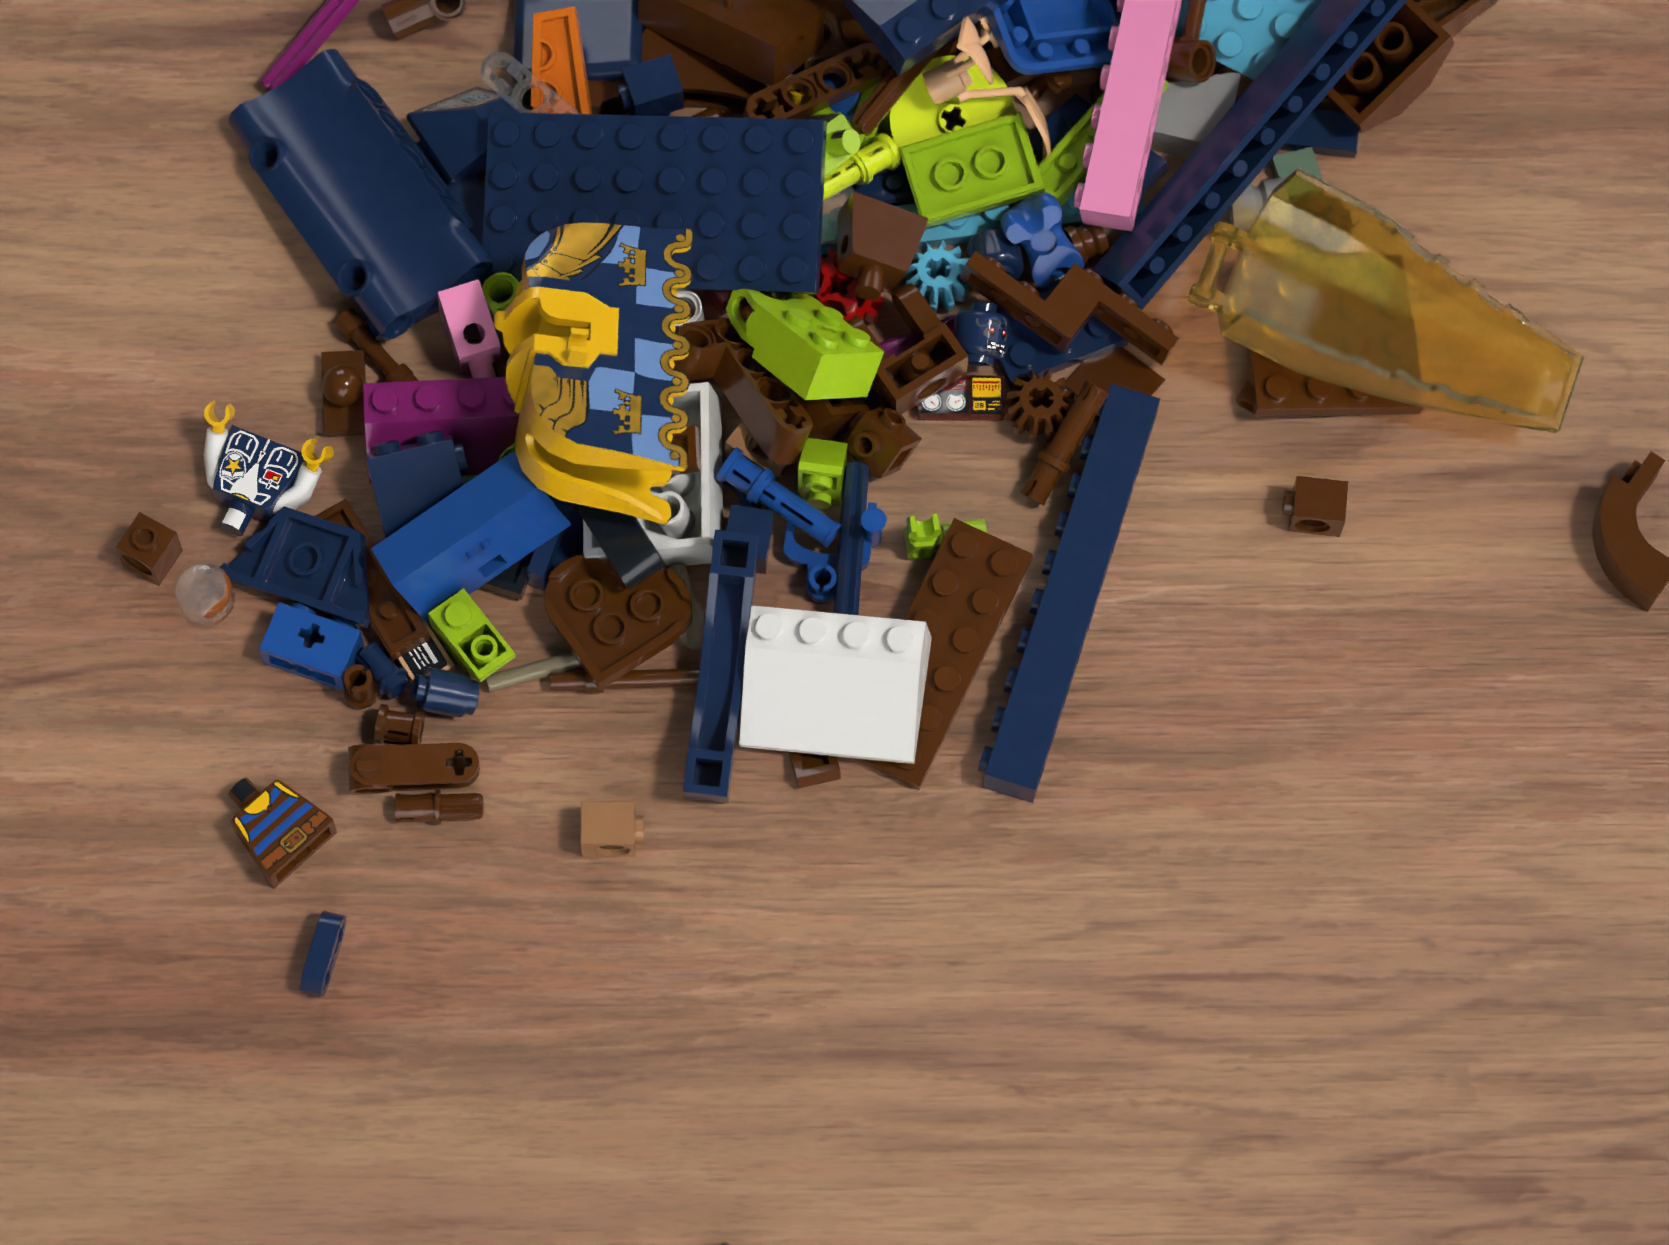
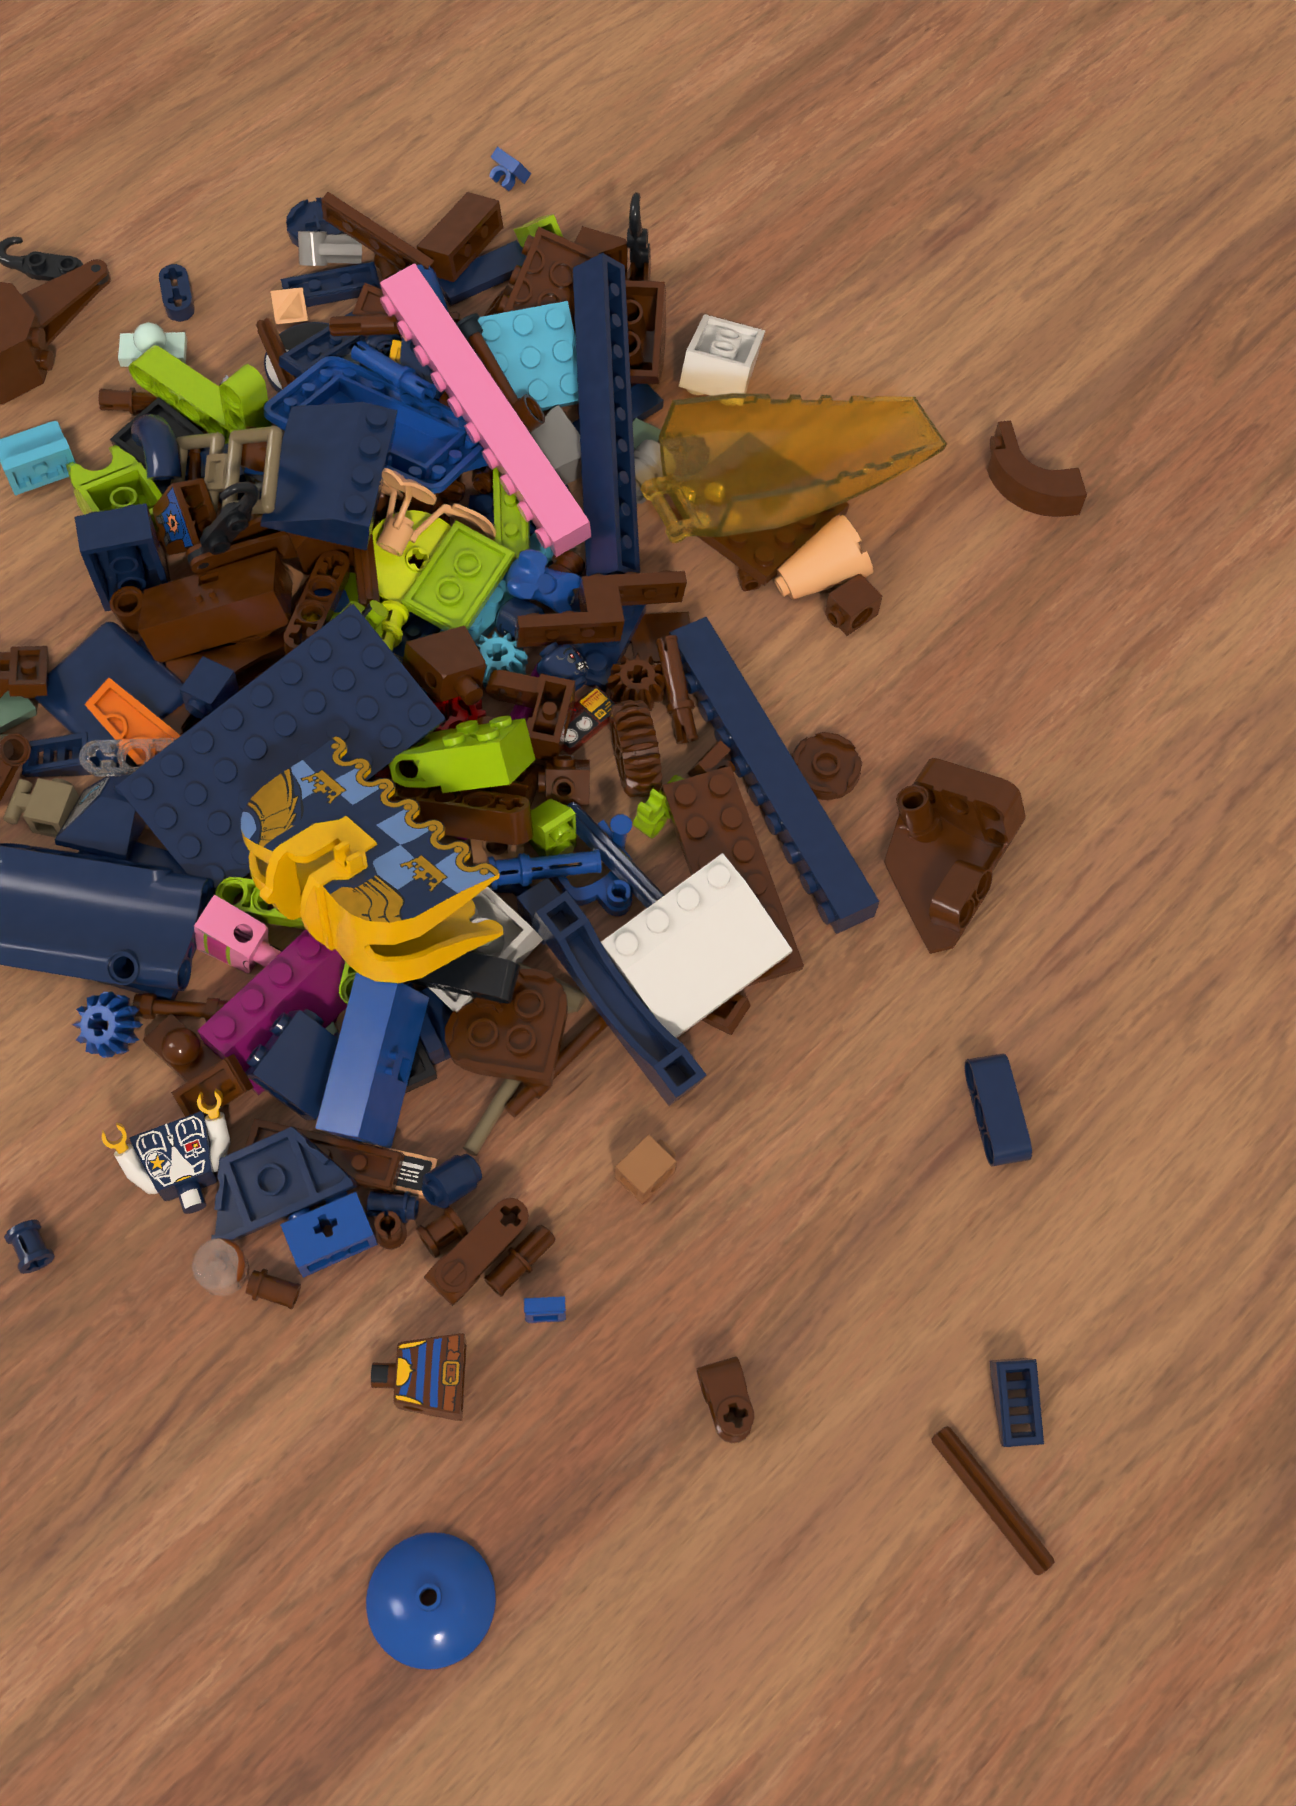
camera: 45 degrees left, 5 degrees down
(82, 444) = (29, 1246): none -> dark blue bush
(126, 1024) = (451, 1626): none -> blue dish
(149, 548) = (148, 1272): reddish brown brick -> none
(229, 649) = (272, 1289): none -> reddish brown pin
(304, 314) = (118, 1014): none -> blue gear
(323, 953) = (544, 1431): dark blue beam -> none
(347, 441) = (225, 1076): none -> reddish brown tile
(416, 863) = (545, 1309): none -> blue tile
(429, 76) = (46, 806): none -> dark tan brick
(469, 636) = (433, 1129): lime slope -> none
(480, 50) = (63, 765): none -> dark blue slope
(489, 1059) = (726, 1392): none -> reddish brown piece
(951, 1056) = (998, 1110): none -> dark blue beam
(967, 464) = (635, 748): none -> reddish brown gear
(1029, 536) = (712, 760): none -> reddish brown tile
(1133, 632) = (828, 764): none -> reddish brown tile
(1154, 801) = (948, 844): none -> reddish brown panel
(1331, 442) = (824, 561): none -> light nougat cone
(1459, 155) = (720, 357): none -> white slope

